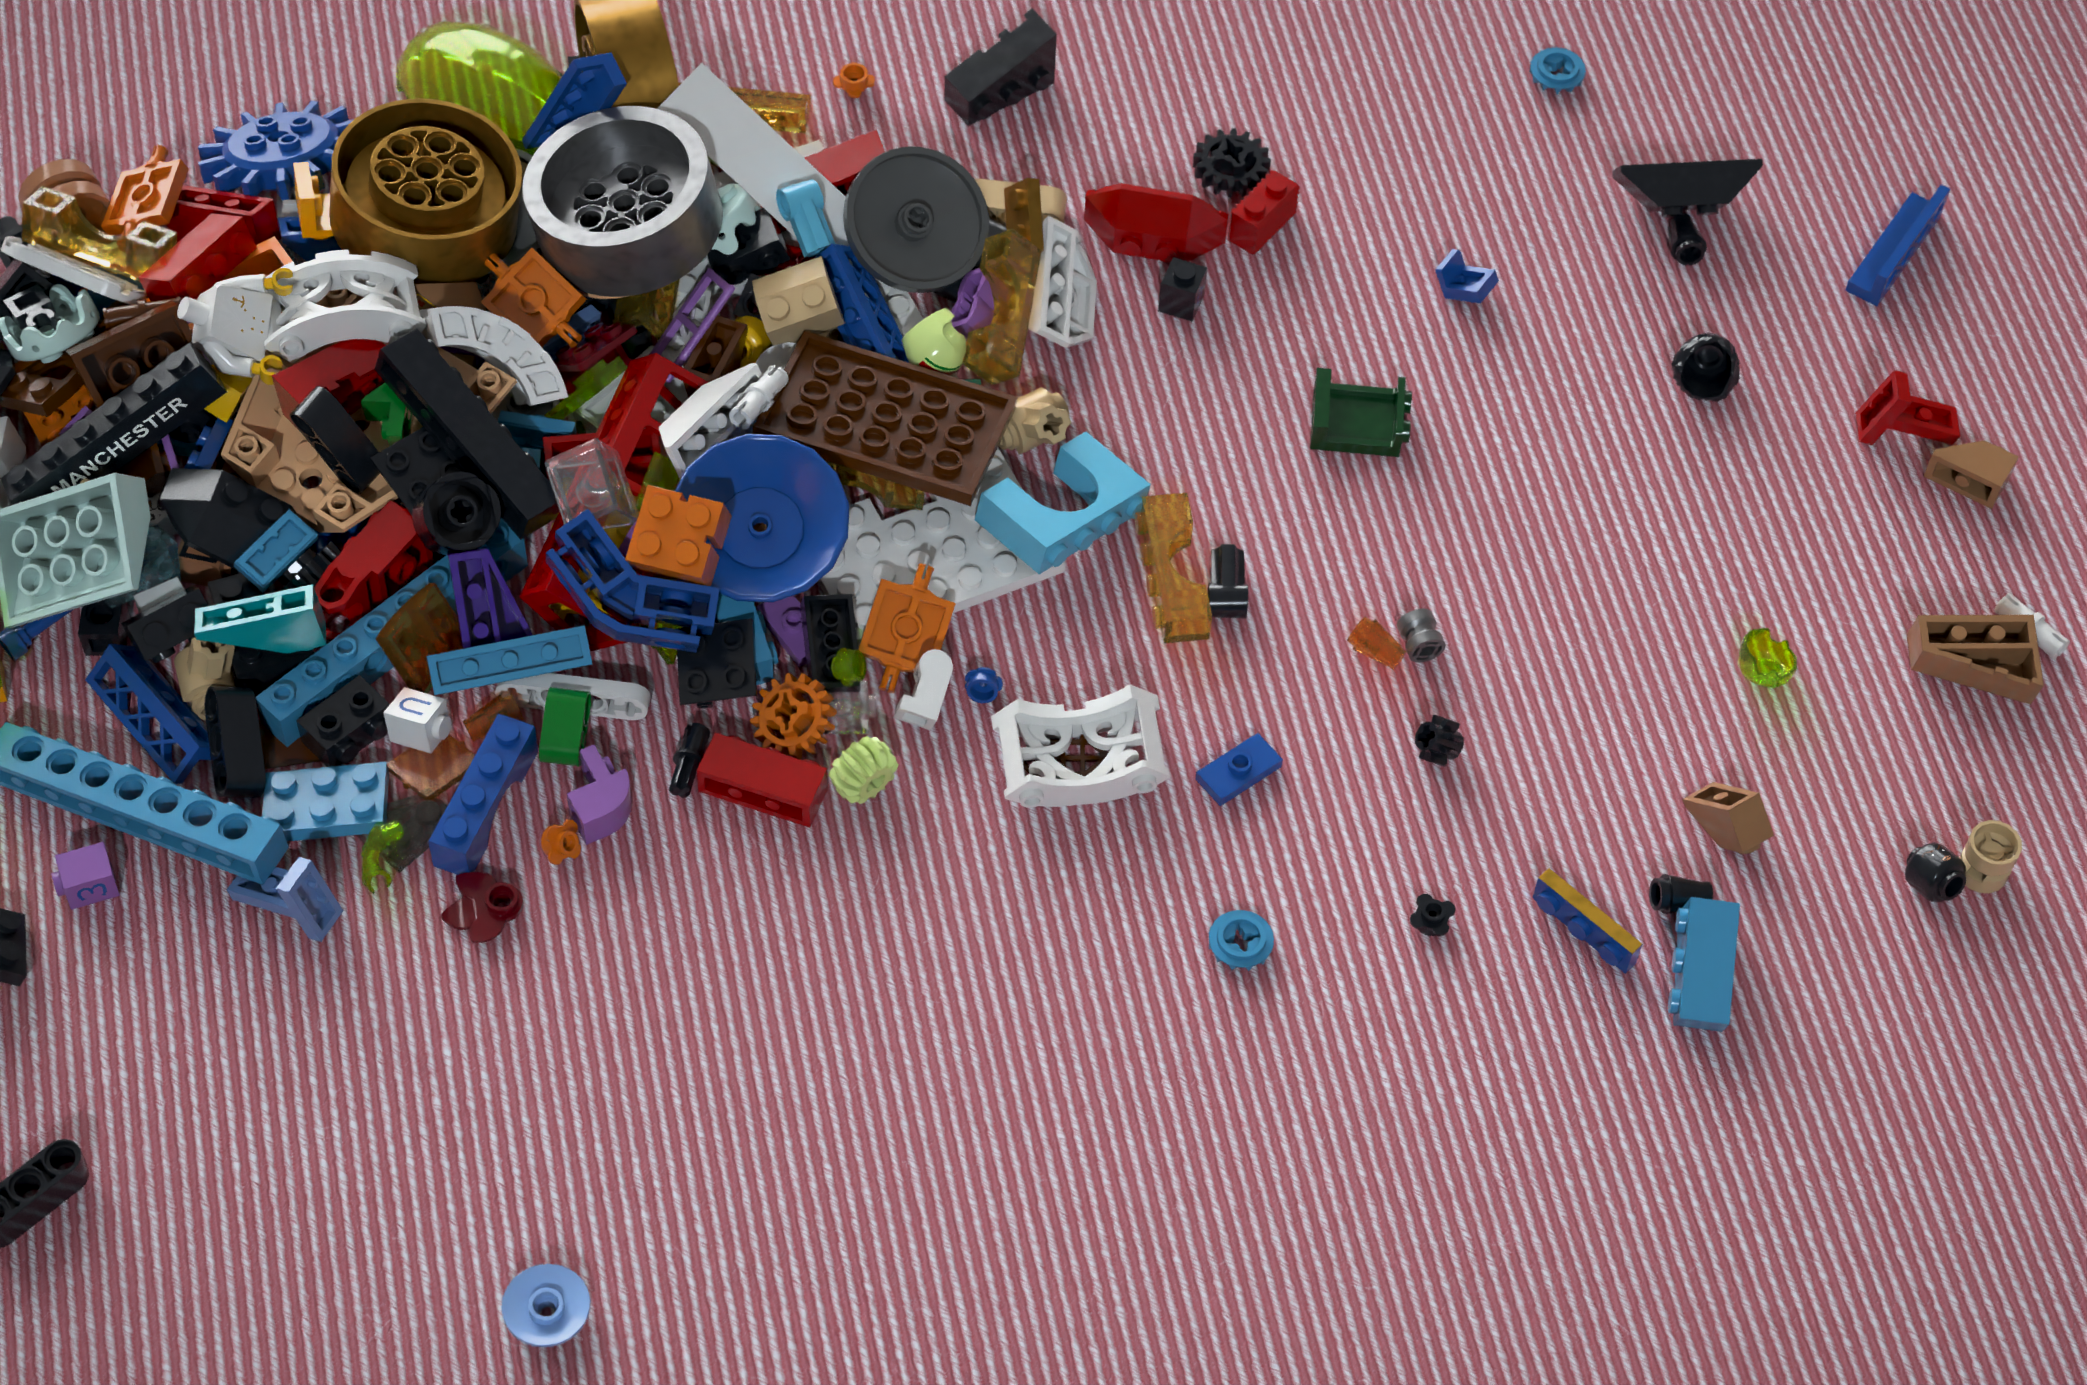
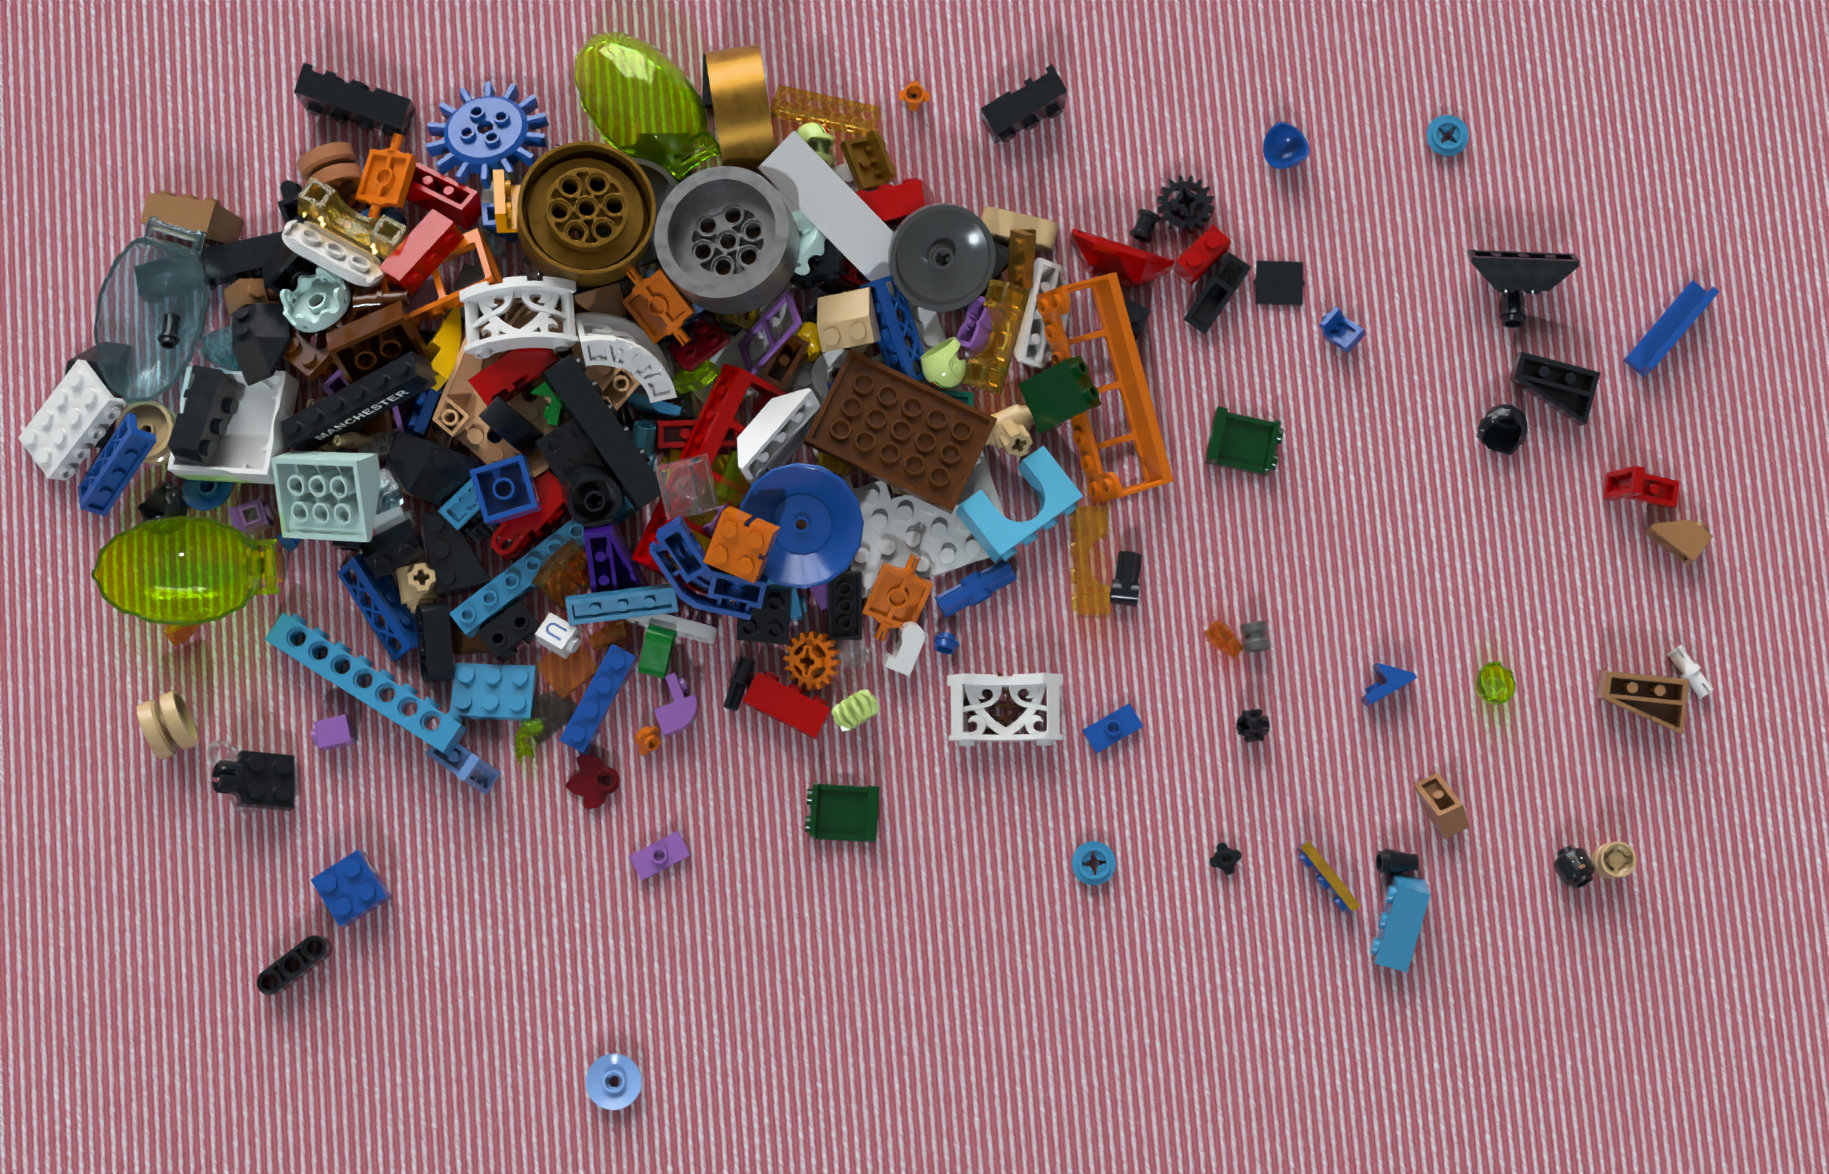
camera: 10 degrees right, 25 degrees up
(31, 308) = (303, 288): black plate -> none
(94, 133) = (353, 102): none -> black wedge
(118, 1077) = (351, 888): none -> blue brick
(234, 322) = (443, 329): white torso -> none
(269, 622) = (456, 564): teal slope -> none
(333, 513) = (506, 490): none -> blue brick
(577, 95) = (703, 154): blue fence -> none
(591, 994) = (660, 855): none -> medium lavender plate
(758, 397) = (810, 418): white pin -> none
(803, 207) = (859, 248): medium azure piece -> none
(804, 131) = (868, 161): none -> pearl gold bracket
(849, 666) = (853, 631): clear neon green plate -> none
(861, 911) = (842, 812): none -> dark green panel
(1015, 614) = (975, 588): none -> blue piece
(1098, 365) = (1060, 393): none -> dark green panel
(1181, 179) = (1144, 225): none -> black bush
(1193, 349) = (1129, 382): none -> orange window
(1293, 251) = (1217, 293): none -> black slope
(1349, 91) = (1285, 146): none -> blue helmet
(1371, 242) = (1279, 283): none -> black piece
(1619, 672) = (1392, 680): none -> blue slope
(1764, 310) = (1557, 384): none -> black wedge

